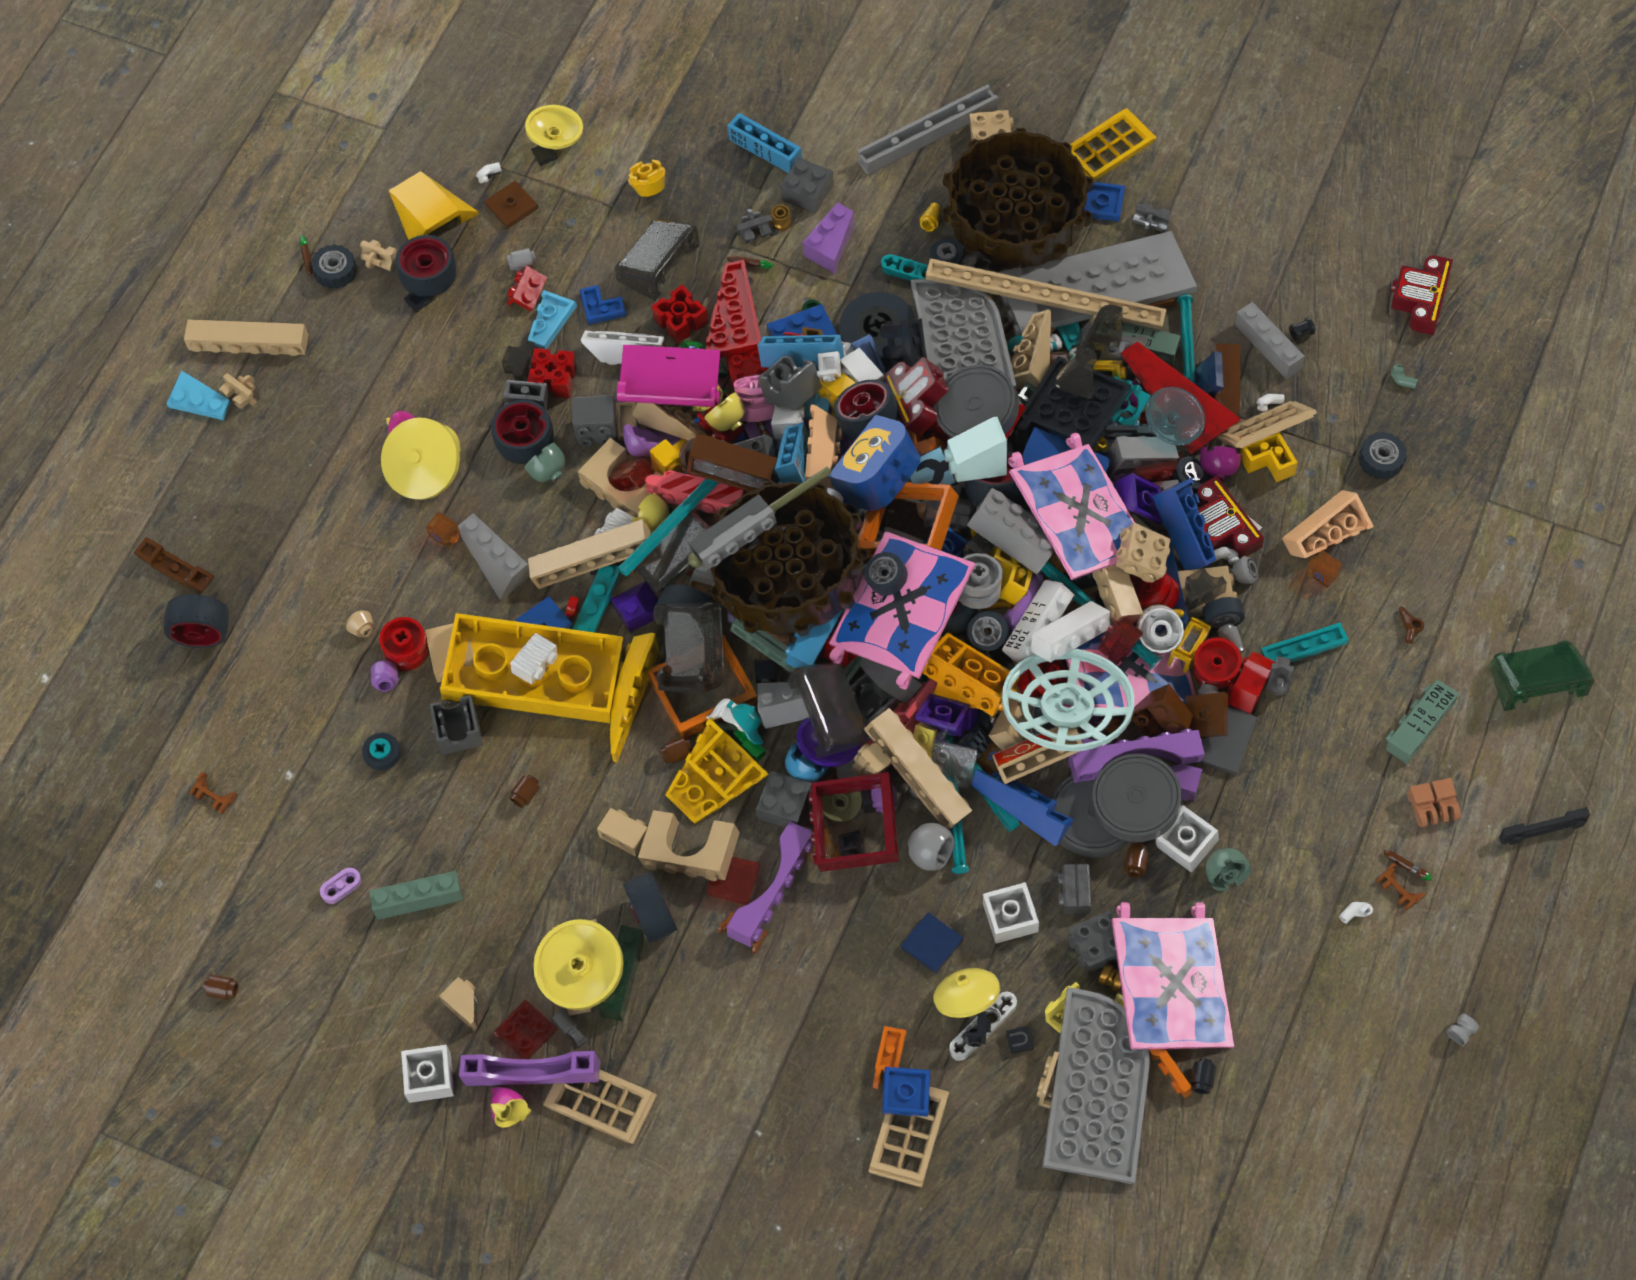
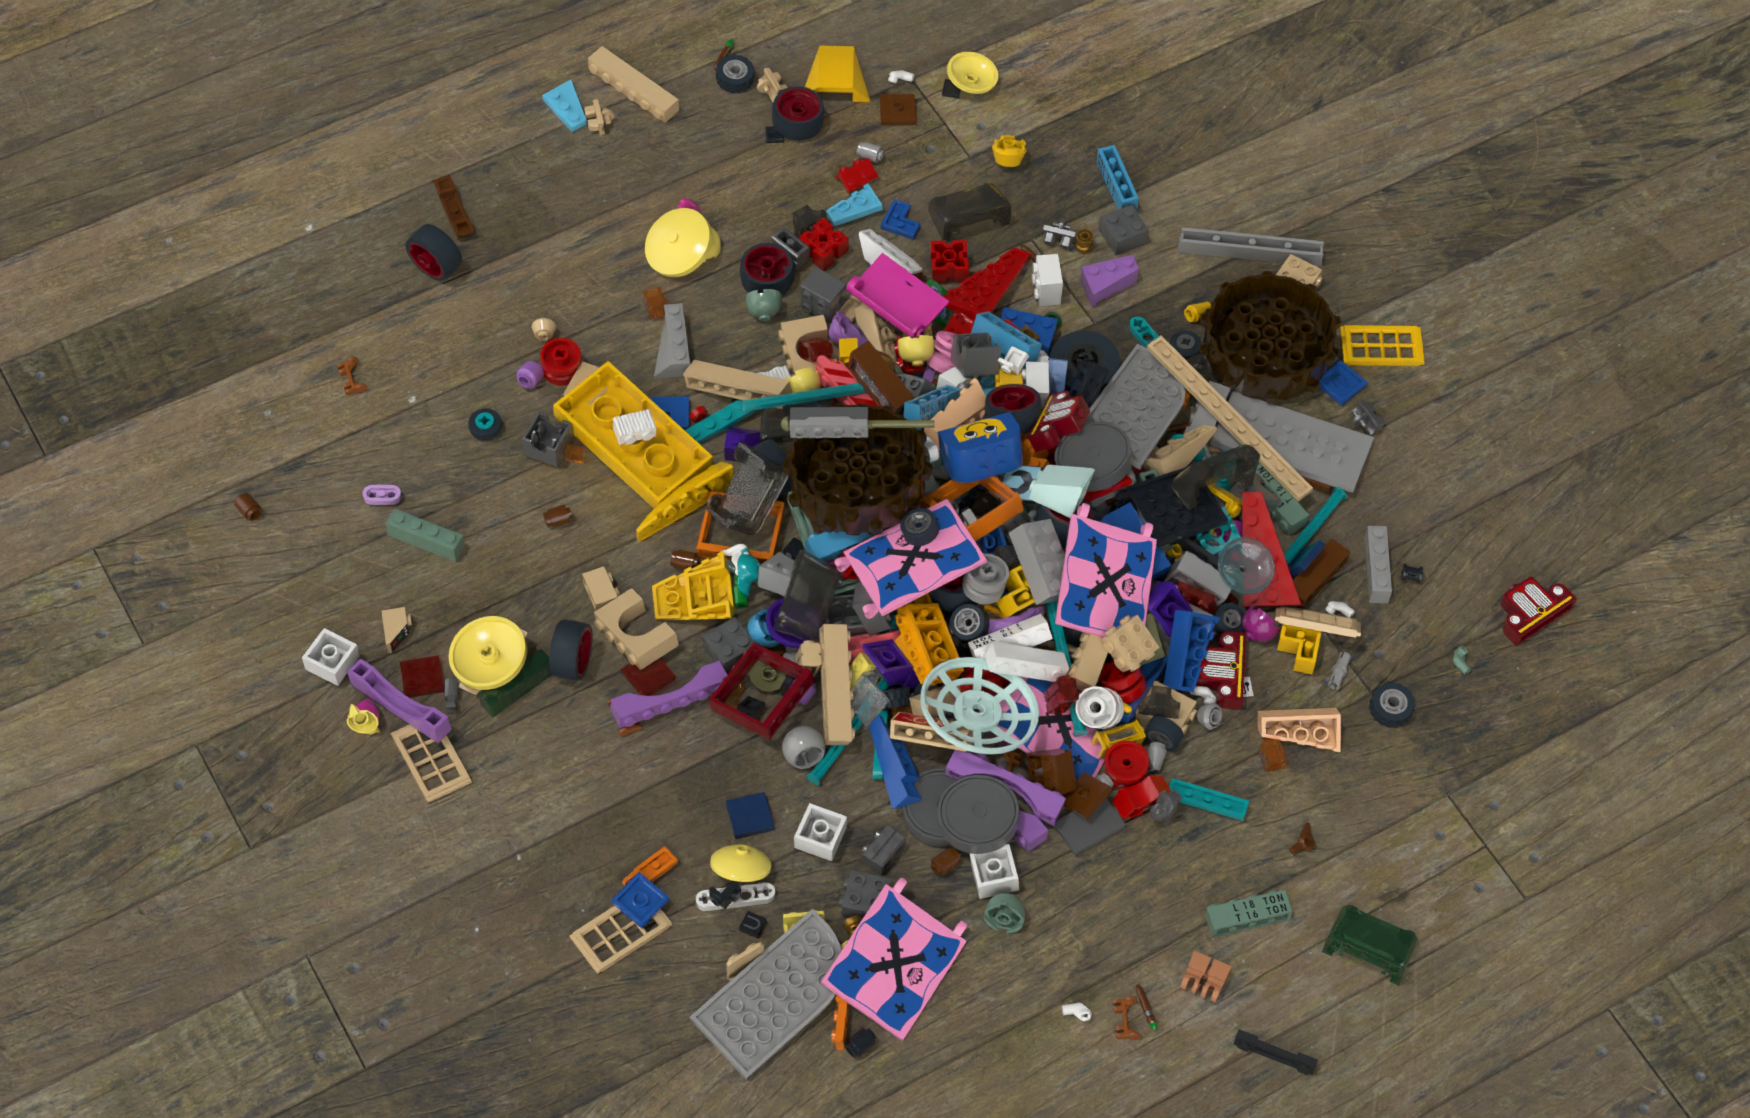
camera: 30 degrees right, 5 degrees down
(490, 721) = (574, 453): none -> clear orange tile
(782, 273) = (1047, 280): none -> white brick
(1315, 455) = (1339, 670): none -> light grey pin

